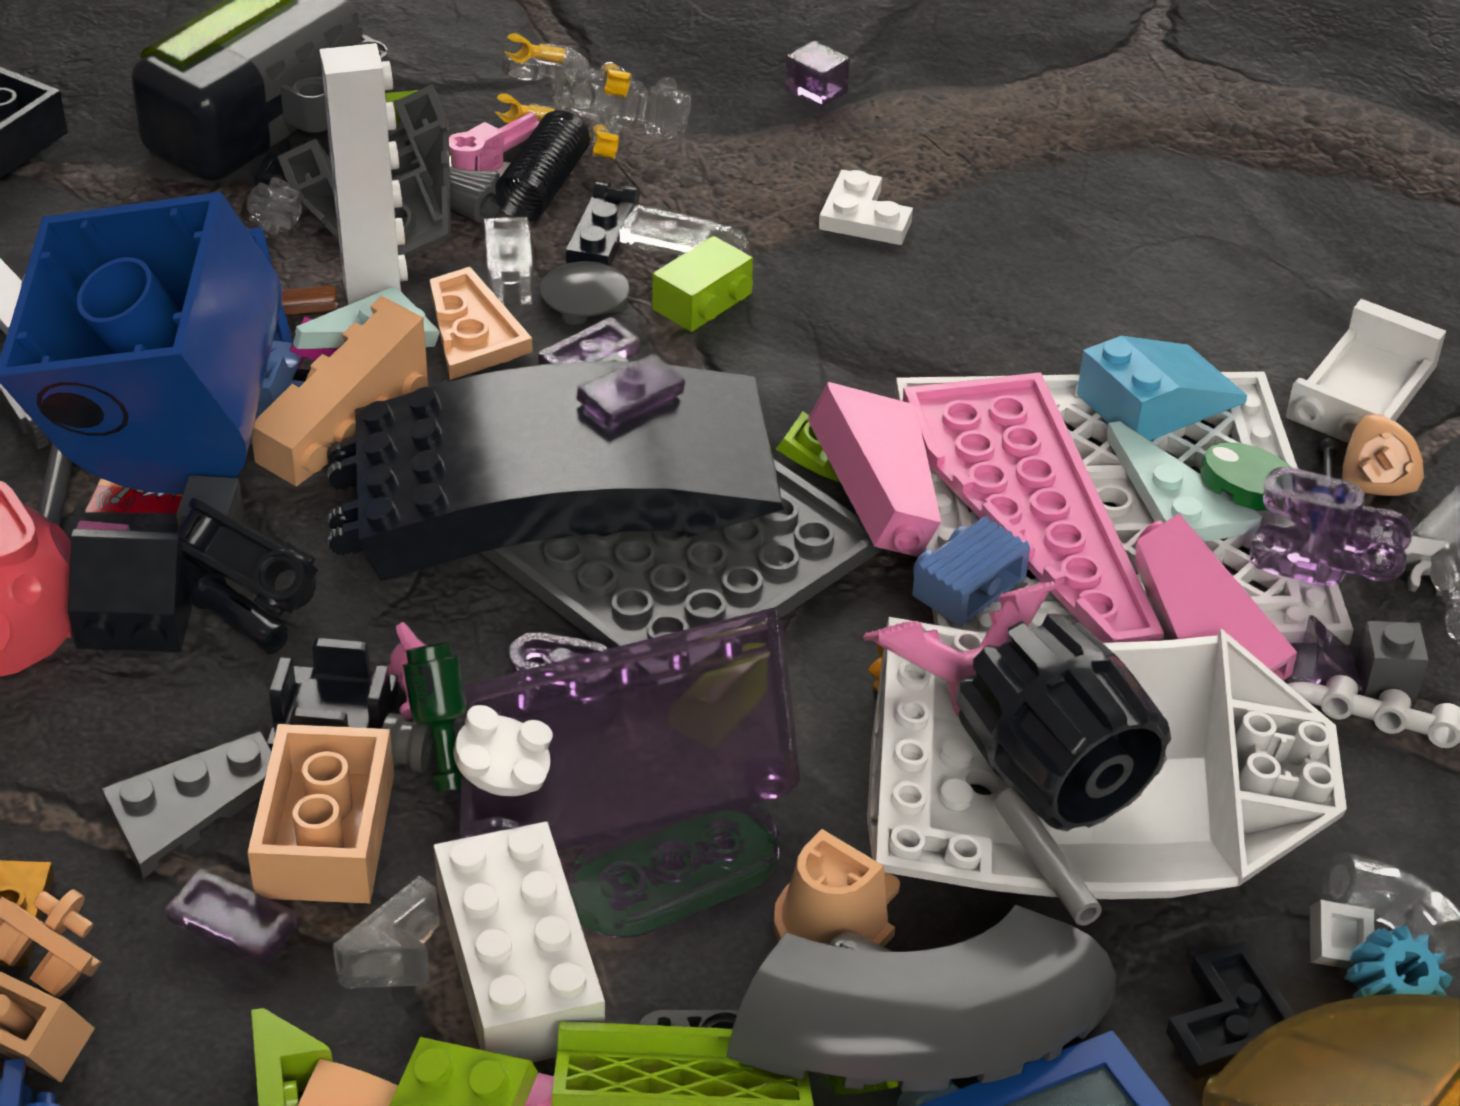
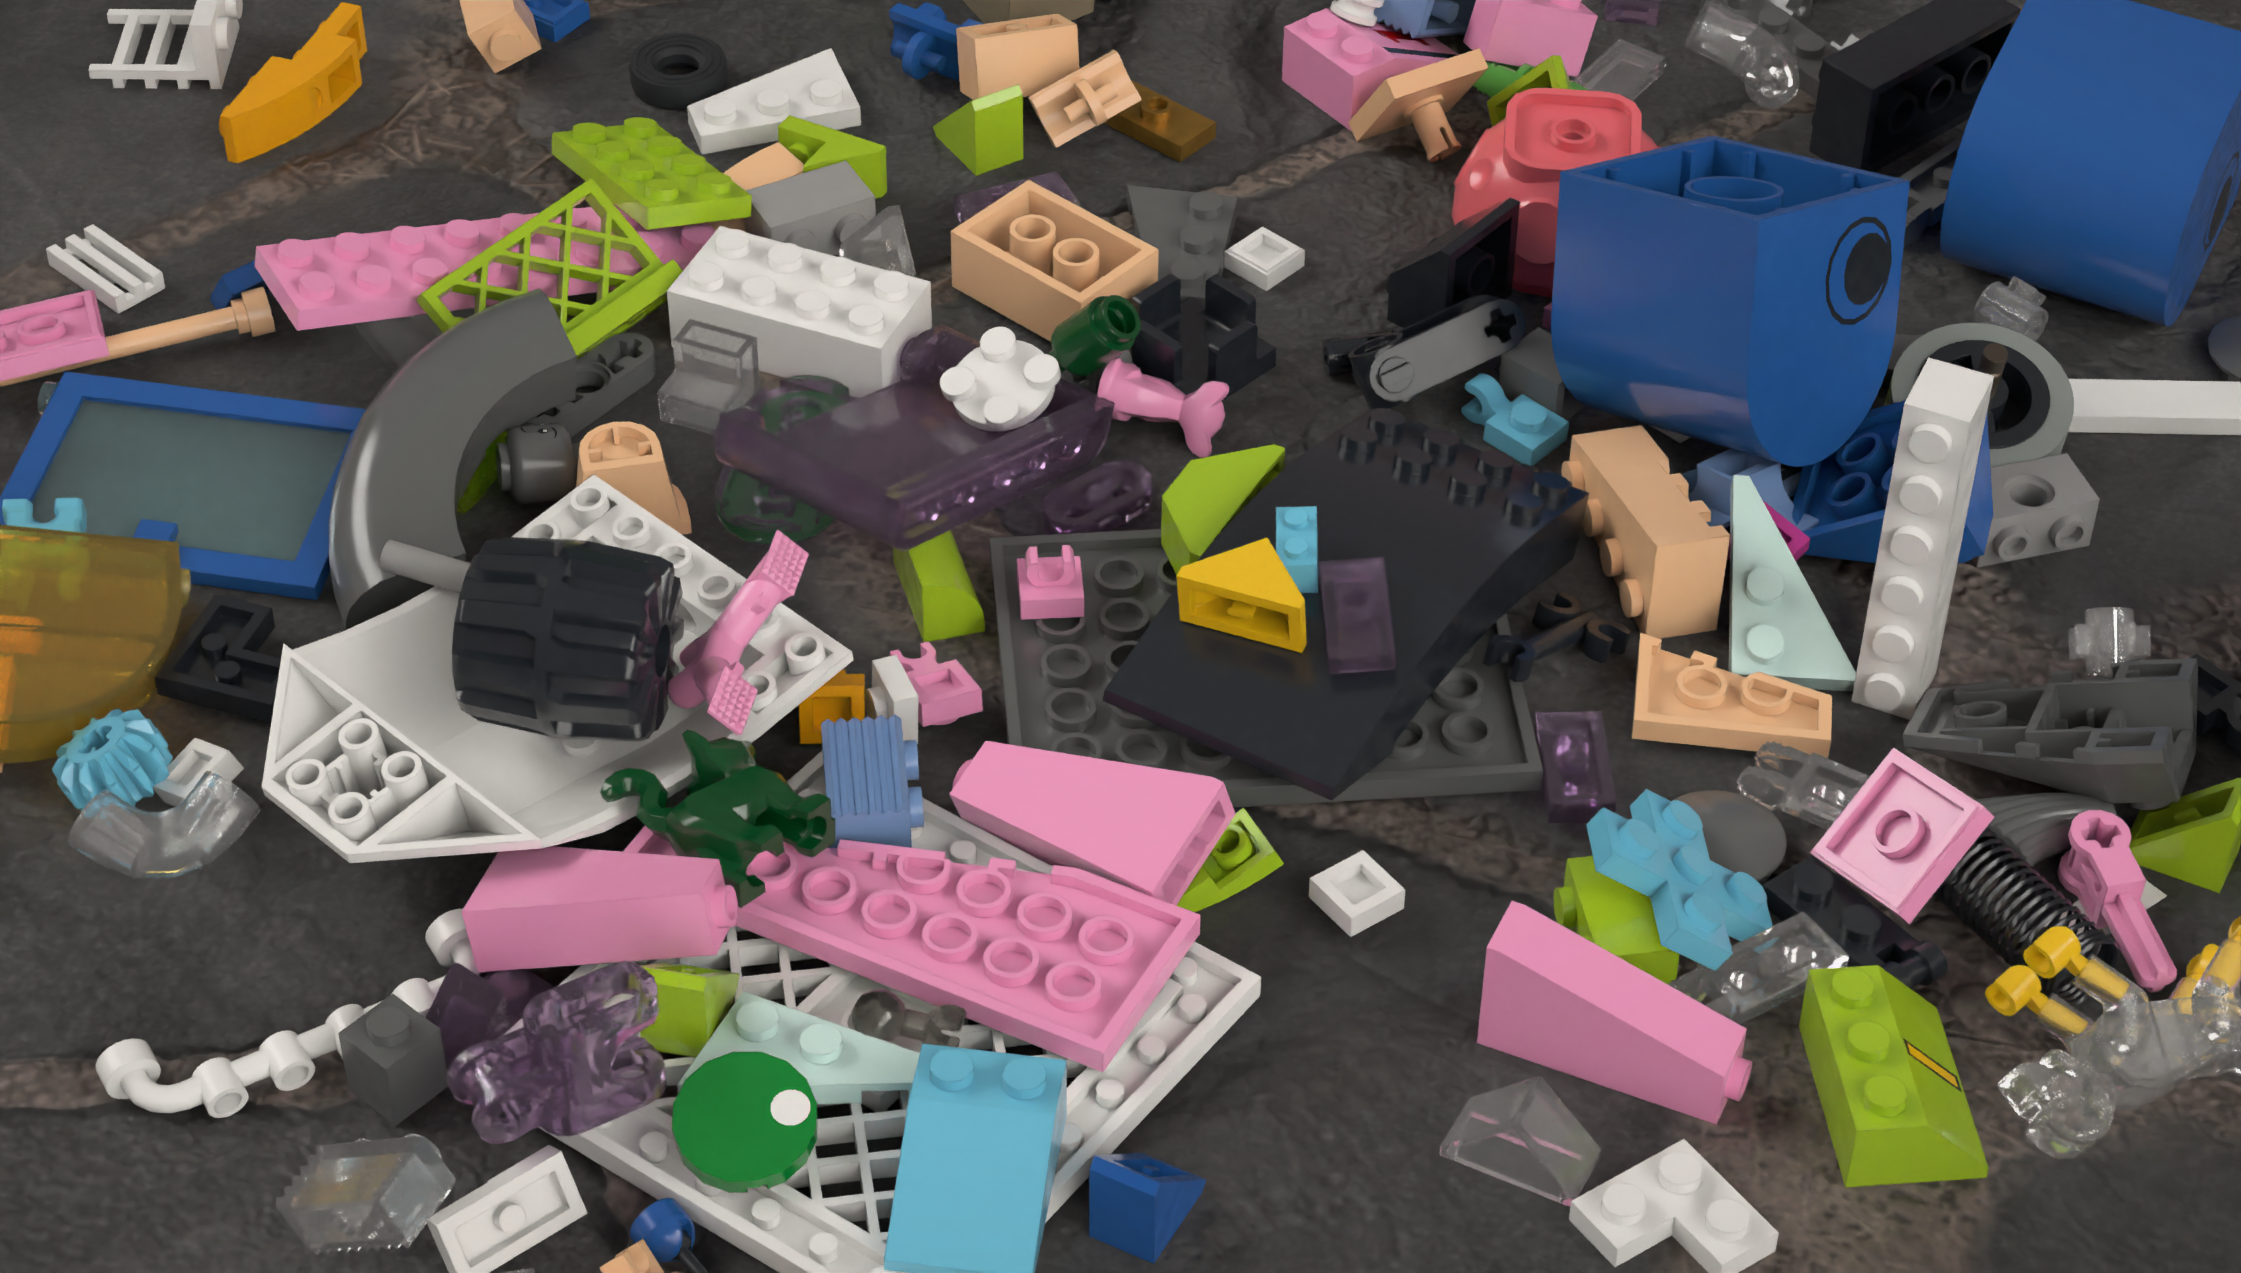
camera: 130 degrees right, 0 degrees up
(133, 999) = (986, 131): none -> lime slope
(164, 742) = (1264, 258): none -> white tile
(268, 513) = (1516, 427): none -> medium azure plate
(371, 1024) = (812, 208): none -> light grey brick
(541, 197) = (1902, 835): none -> bright pink tile
(549, 556) = (1211, 496): none -> lime slope
(604, 431) = (1299, 545): none -> medium azure piece
(651, 949) = (711, 376): none -> clear piece
(661, 252) = (1668, 860): none -> medium azure plate
(671, 430) = (1245, 596): none -> yellow slope
(689, 605) = (1050, 585): none -> bright pink tile
(712, 172) = (1886, 1080): none -> lime slope
(786, 383) = (1356, 893): none -> white plate
(789, 255) = (1605, 1020): none -> bright pink slope
(823, 632) = (942, 688): none -> bright pink plate
(856, 652) = (892, 695): none -> white plate
(885, 265) = (1524, 1139): none -> clear slope
(1065, 351) = (1139, 1202): none -> blue slope
(1091, 576) = (729, 811): none -> dark green animal
(1115, 471) = (886, 1018): none -> clear smoke arm
(1227, 528) = (690, 1006): none -> lime slope

